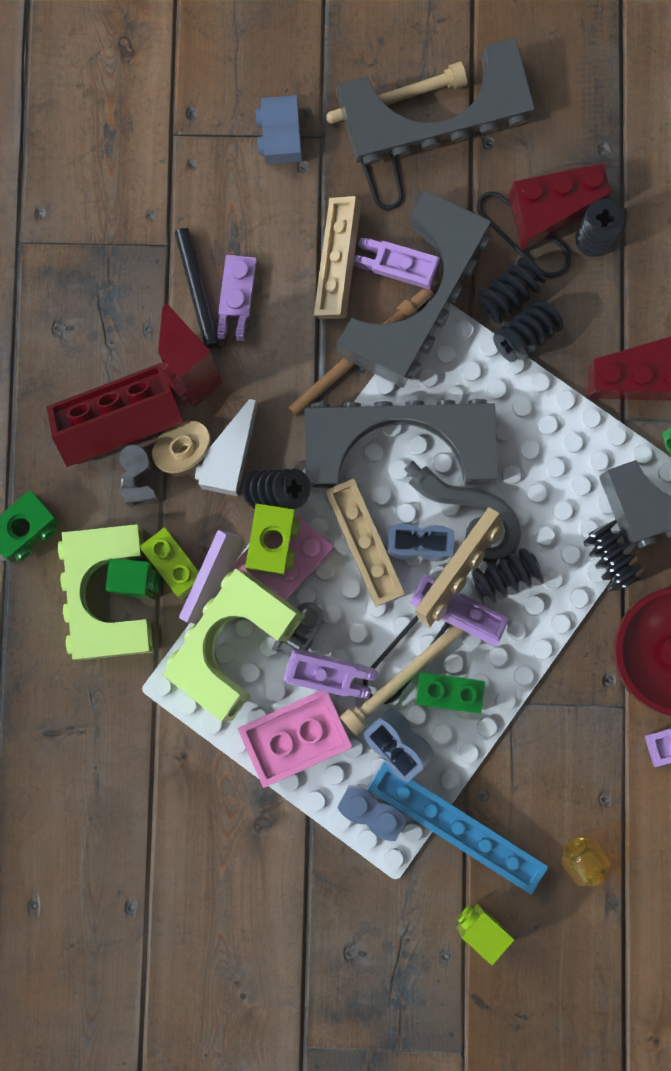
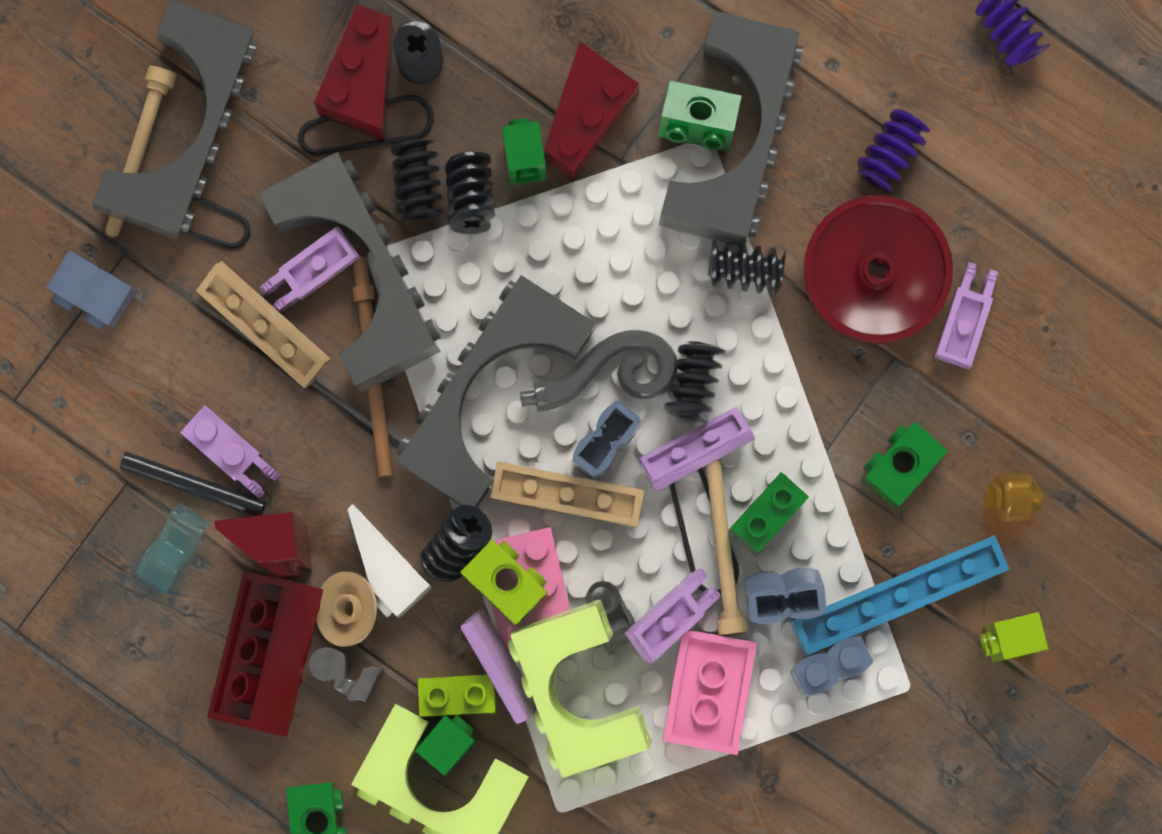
camera: 60 degrees left, 0 degrees up
(141, 305) = (172, 549): none -> clear light blue slope
(453, 577) = (661, 431): tan plate -> none
(572, 770) = (921, 450): none -> green brick
(582, 347) = (524, 151): none -> green brick

